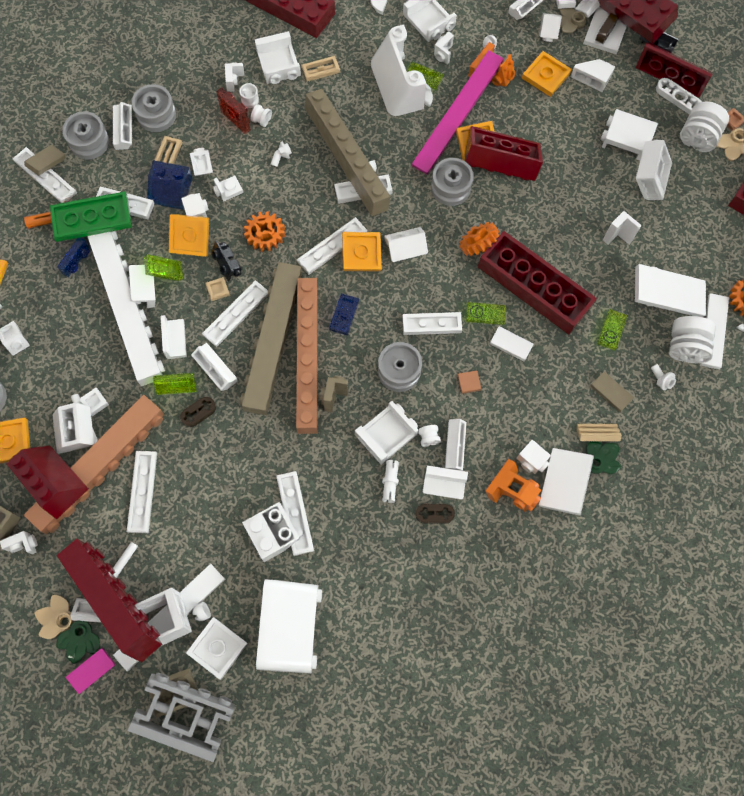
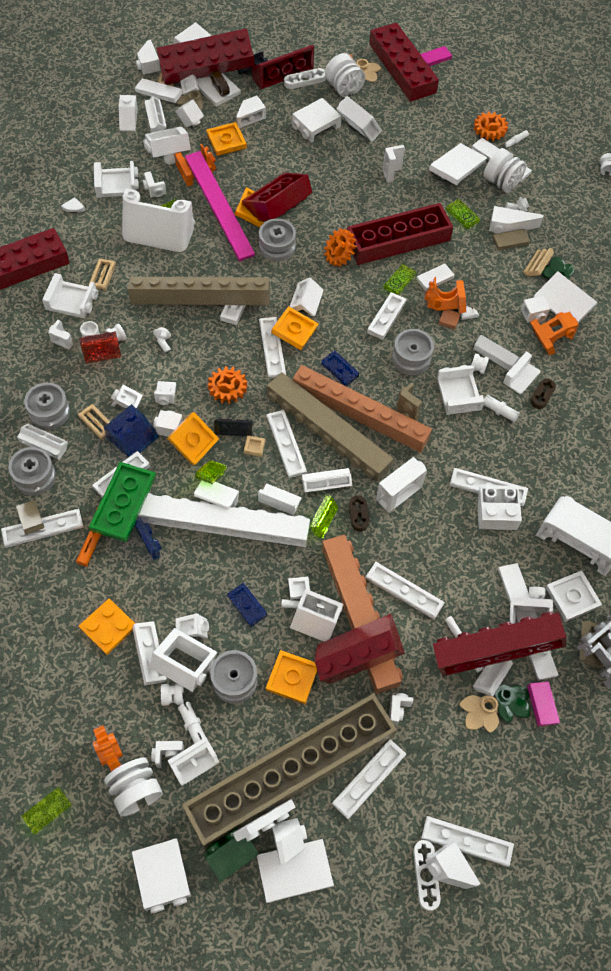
camera: 60 degrees left, 10 degrees down
(56, 368) = (247, 604): none -> clear blue plate
(240, 431) = (401, 484): none -> white window
(488, 394) = (471, 313): none -> white tile
(494, 375) = (446, 300): none -> orange tile
(499, 28) = (167, 142): none -> white window
(633, 379) = (510, 220): none -> white slope

